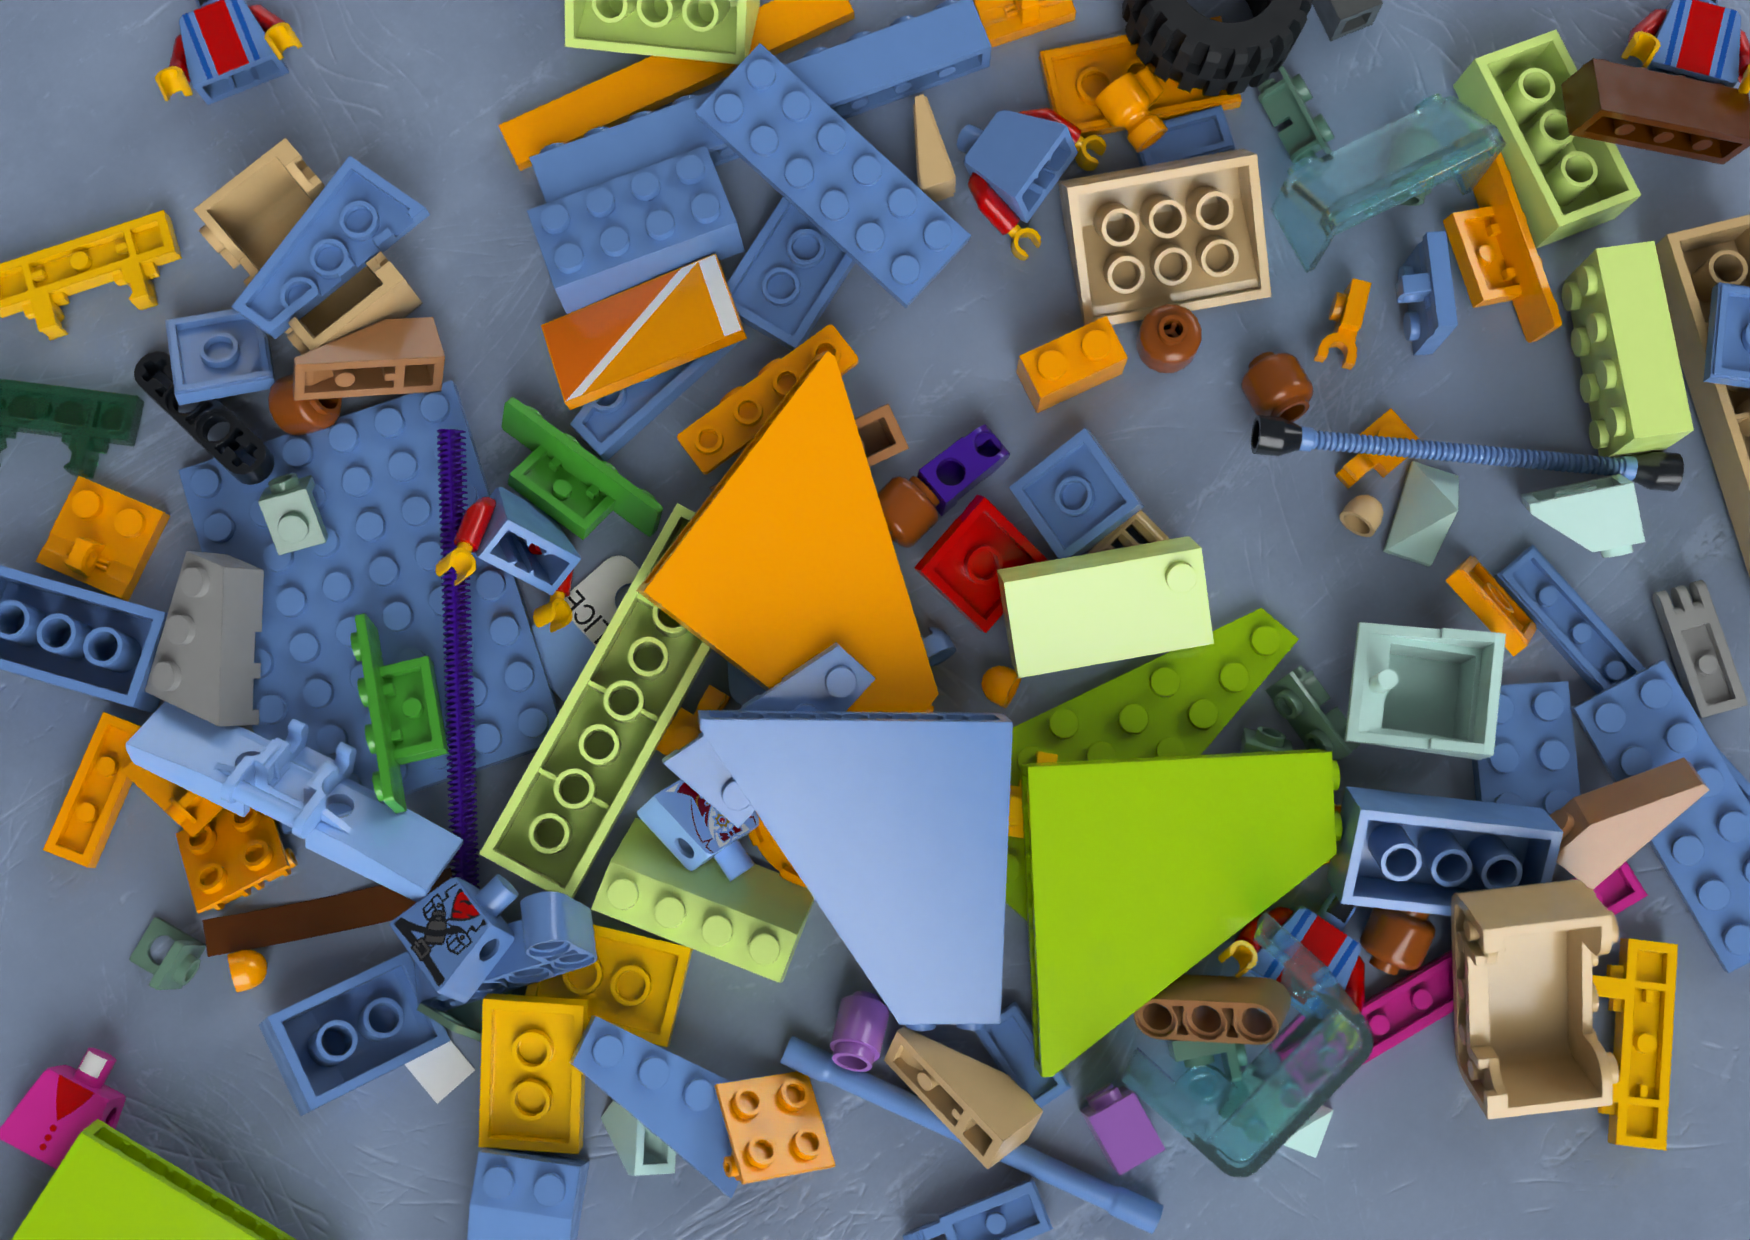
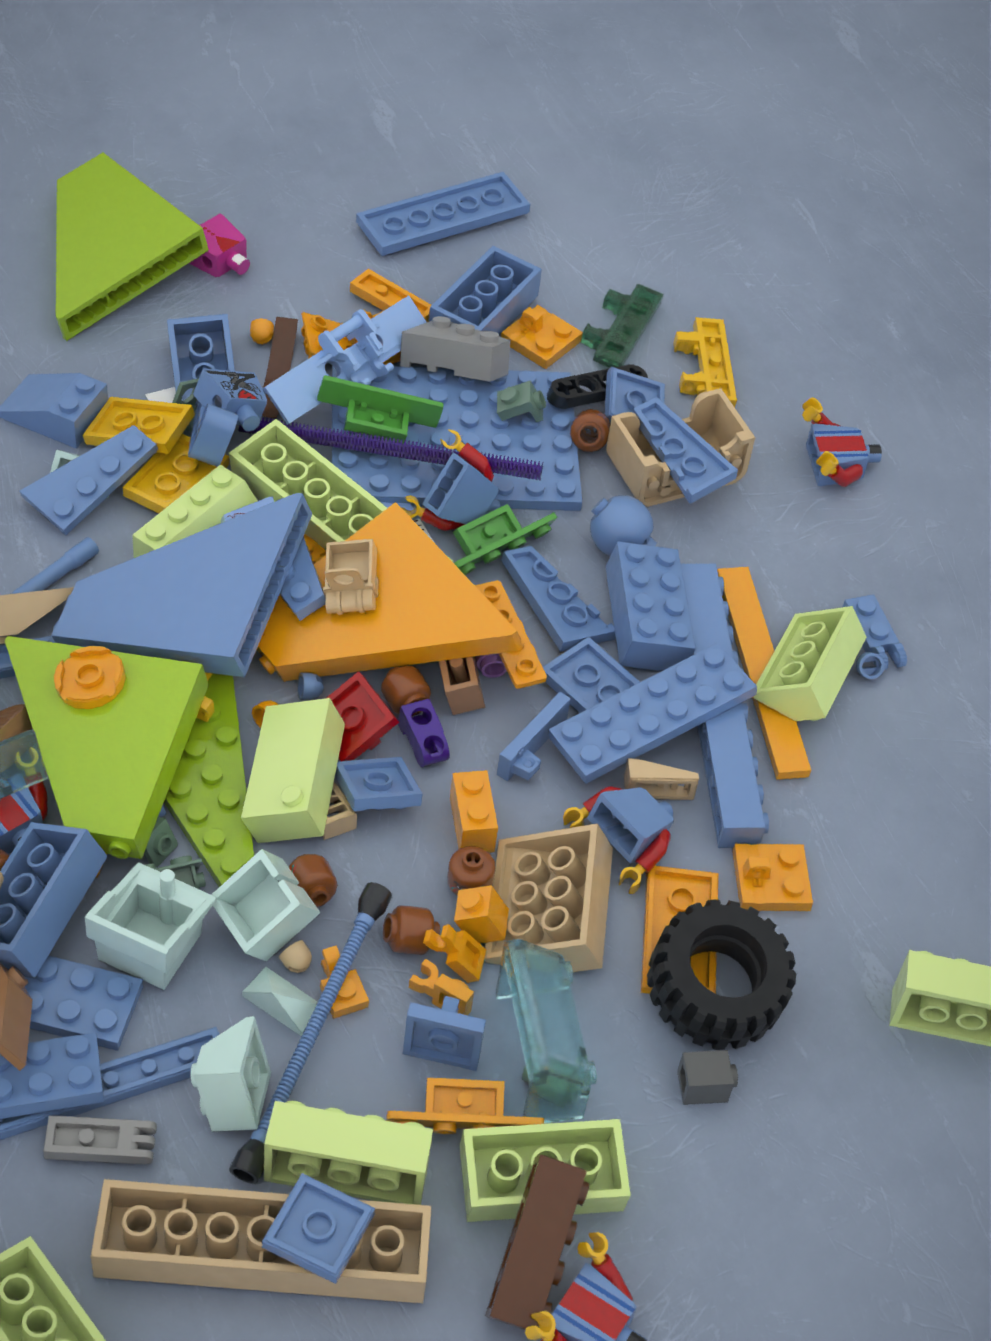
camera: 95 degrees right, 30 degrees down
(179, 963) = (278, 301): sand green bracket -> none
(373, 361) = (602, 459): medium nougat slope -> none
(499, 302) = (620, 520): none -> medium blue brick
(643, 331) = (579, 594): tile -> none
(773, 1128) = (48, 516): light orange hinge -> none
(796, 615) = (351, 576): none -> tan piece
(859, 1031) = (78, 566): medium lavender brick -> none
(956, 337) = (519, 755): none -> medium blue hinge
(1094, 919) = (89, 677): none -> light orange tile
(1127, 105) = (655, 898): light orange piece -> none
(1190, 137) = (623, 943): medium blue tile -> none
(1230, 306) = (482, 914): none -> light orange brick
(1252, 532) = (315, 877): none -> dark orange head
(1288, 100) = (618, 1020): sand green hinge -> none
(1291, 317) = (463, 951): none -> light orange plate
(1335, 565) = (264, 905): none -> light aqua piece
(1492, 604) = (194, 996): light orange tile -> none

